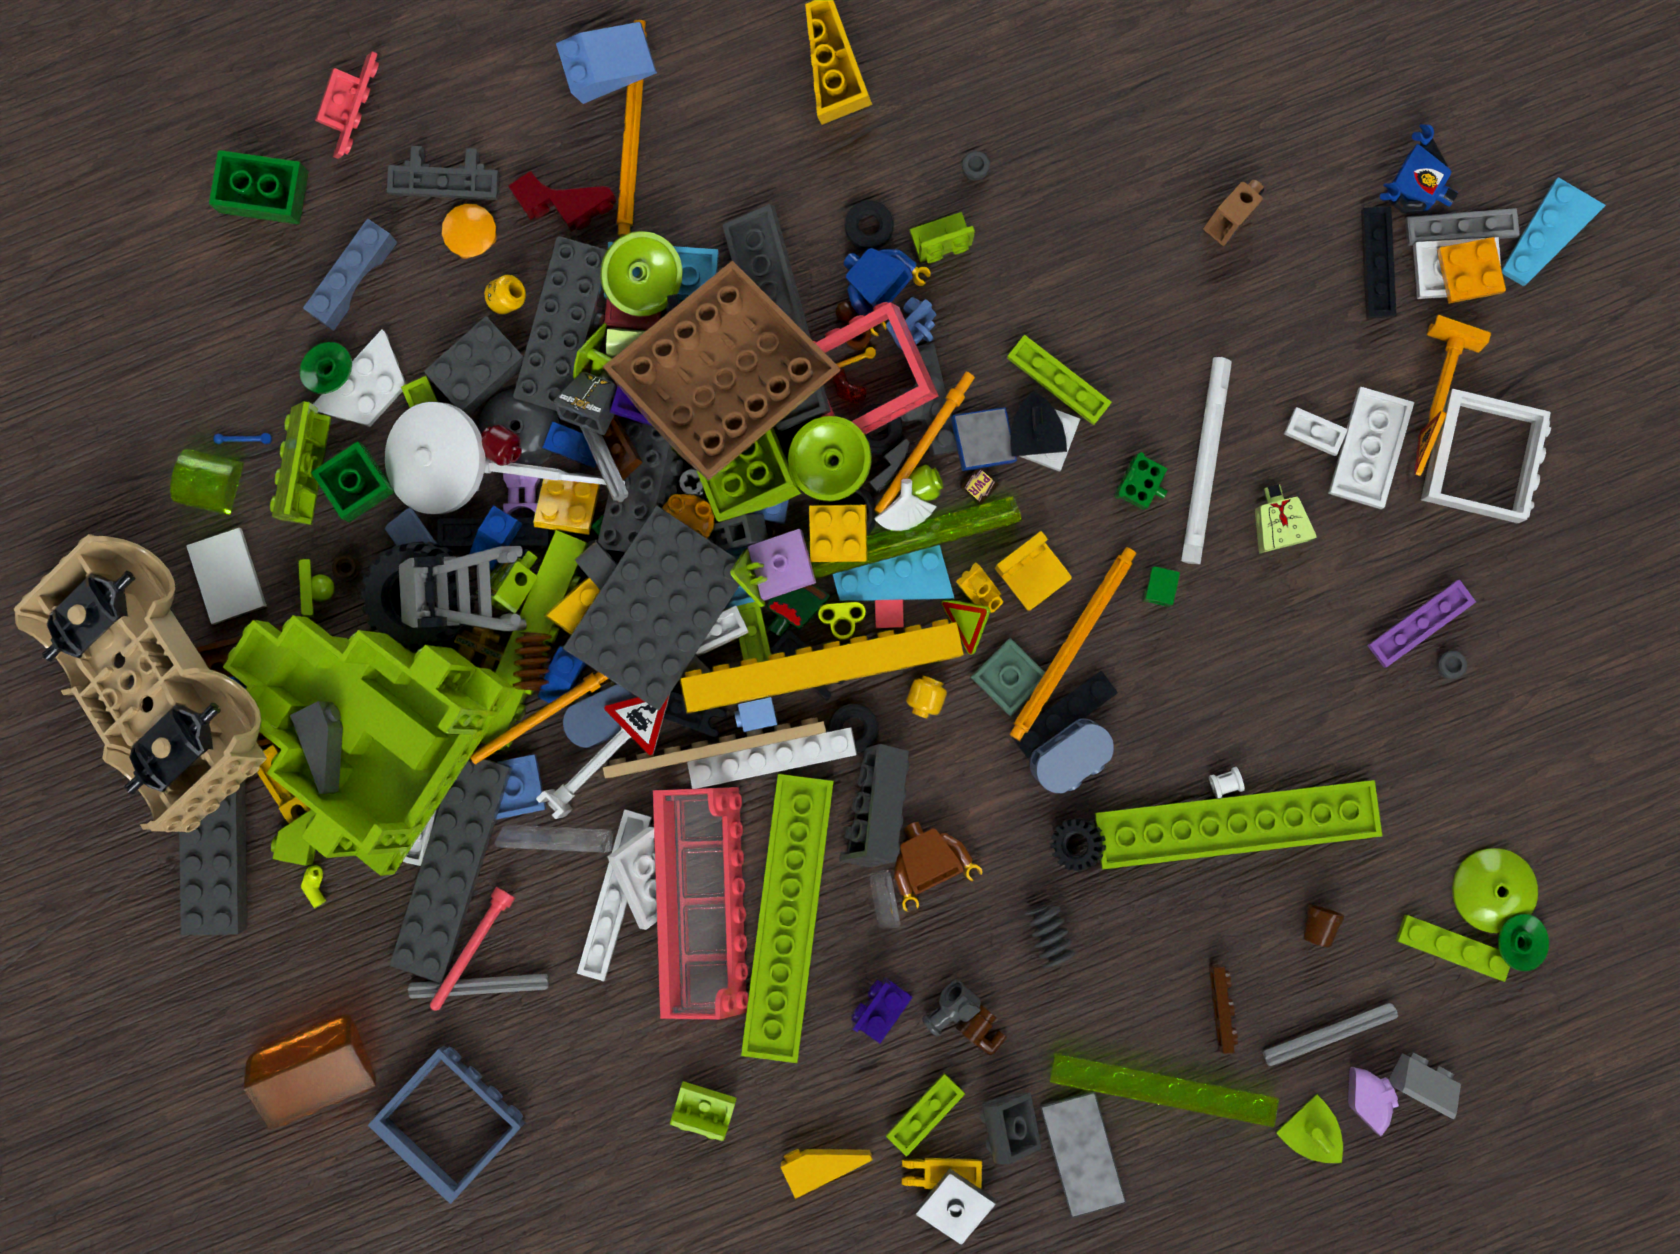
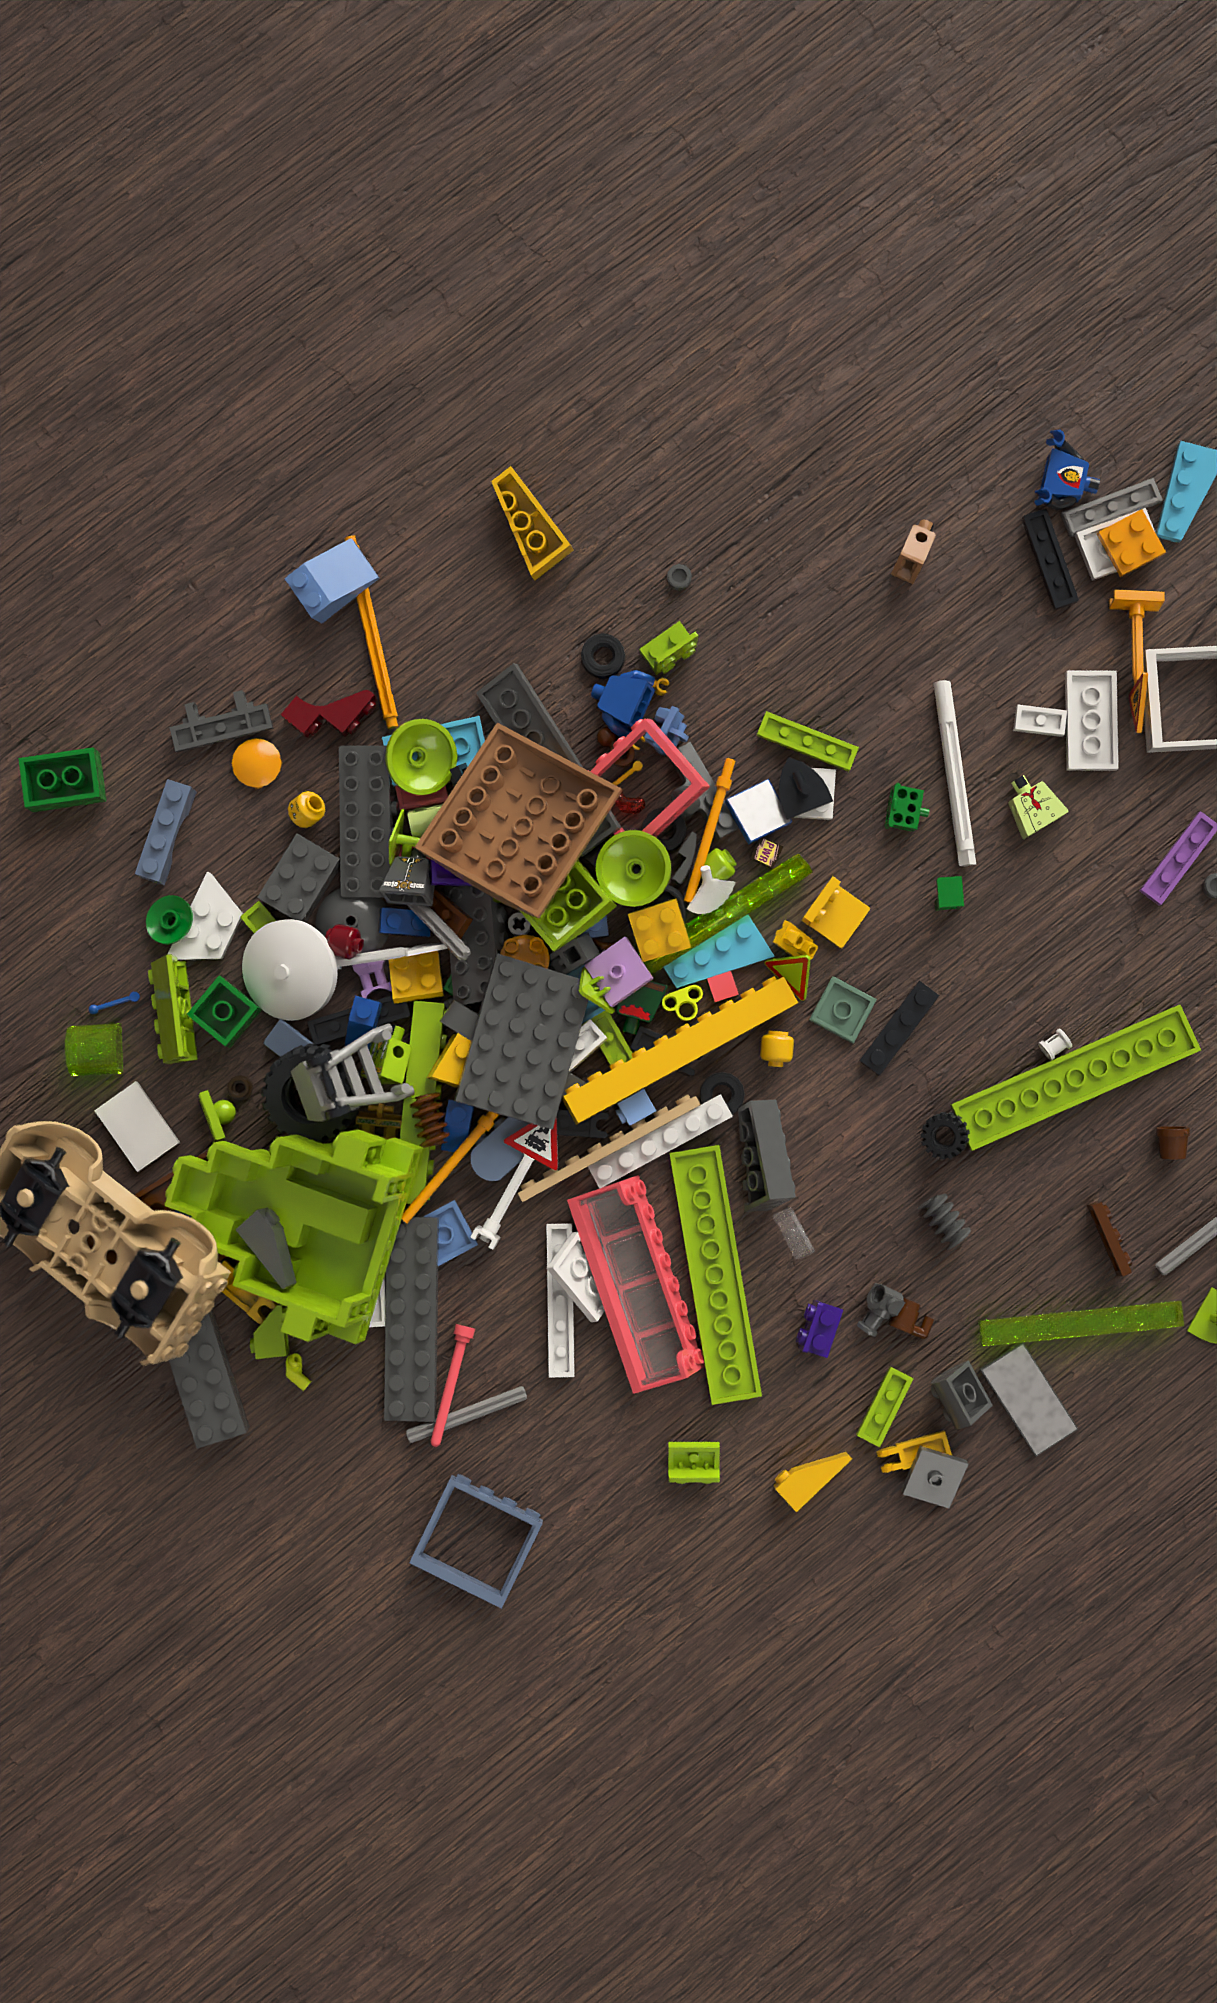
camera: 25 degrees left, 0 degrees up
(308, 1071) = (343, 1532): clear orange windscreen -> none
(342, 102) = (112, 683): coral bracket -> none
(555, 838) = (495, 1267): clear slope -> none
(928, 861) = (822, 1188): dark orange torso -> none
(1071, 756) = (916, 1061): sand blue brick -> none
(1073, 643) = (888, 965): light orange piece -> none

